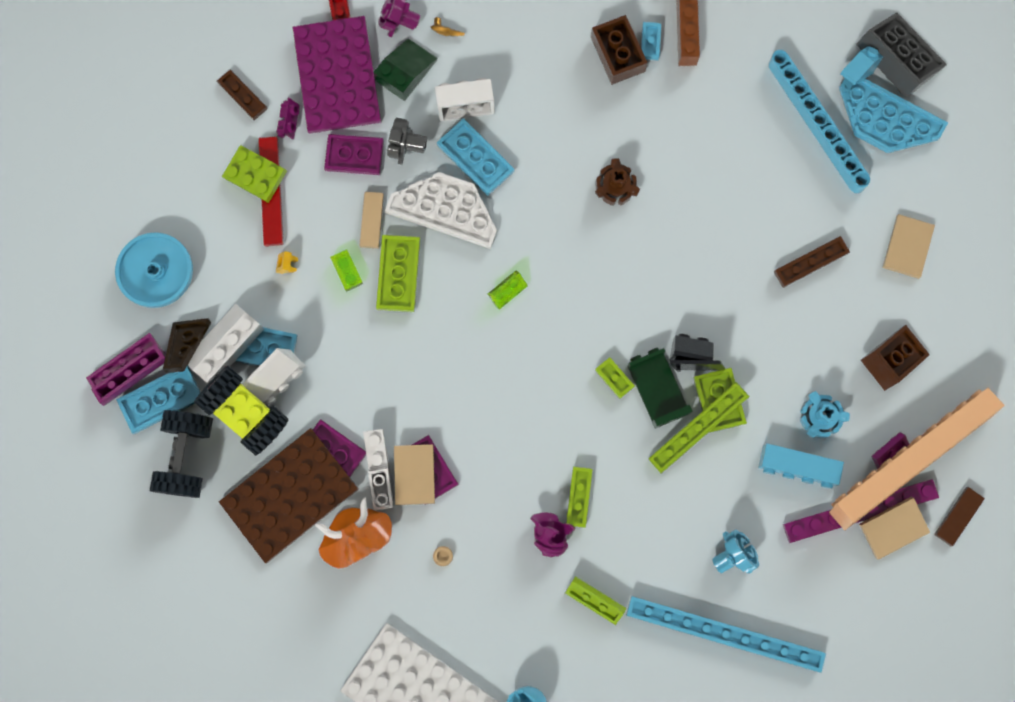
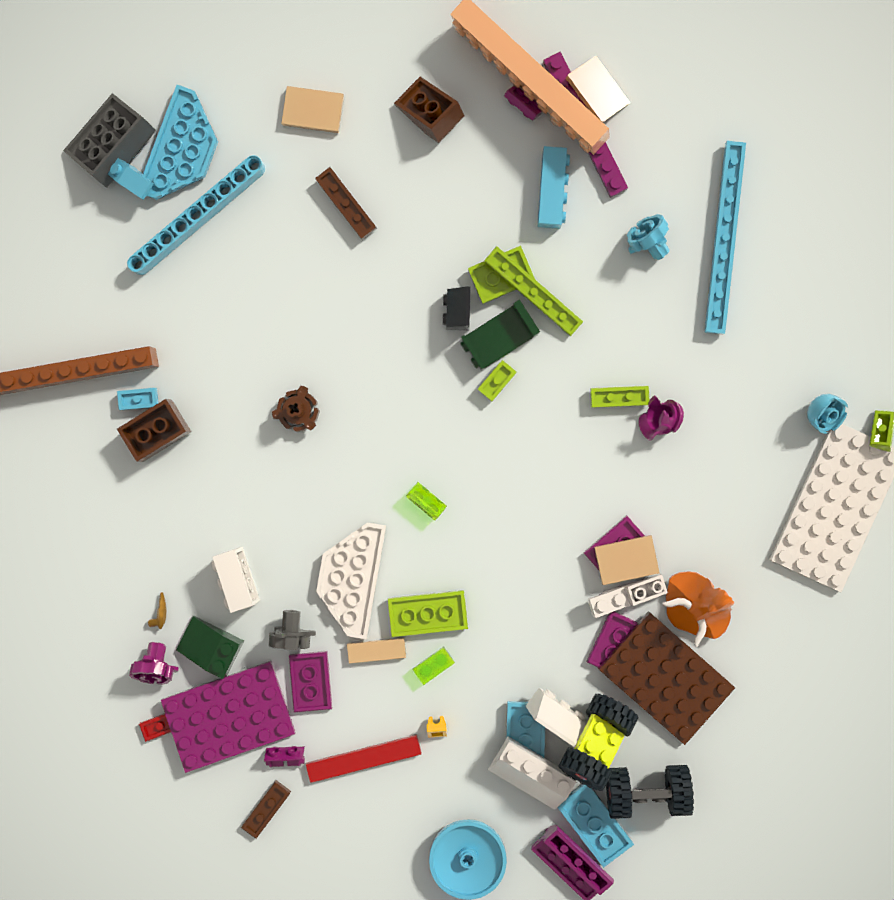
camera: 105 degrees left, 10 degrees up
(183, 342) = (537, 813): dark brown wing -> none
(254, 173) = (349, 779): lime plate -> none
(443, 556) = (698, 518): tan tile -> none
(475, 157) = (293, 557): medium azure plate -> none
(595, 600) = (715, 365): lime plate -> none
(680, 365) = (476, 319): black container -> none
(834, 416) = (498, 160): medium azure piece -> none
(959, 516) = (574, 30): reddish brown tile -> none

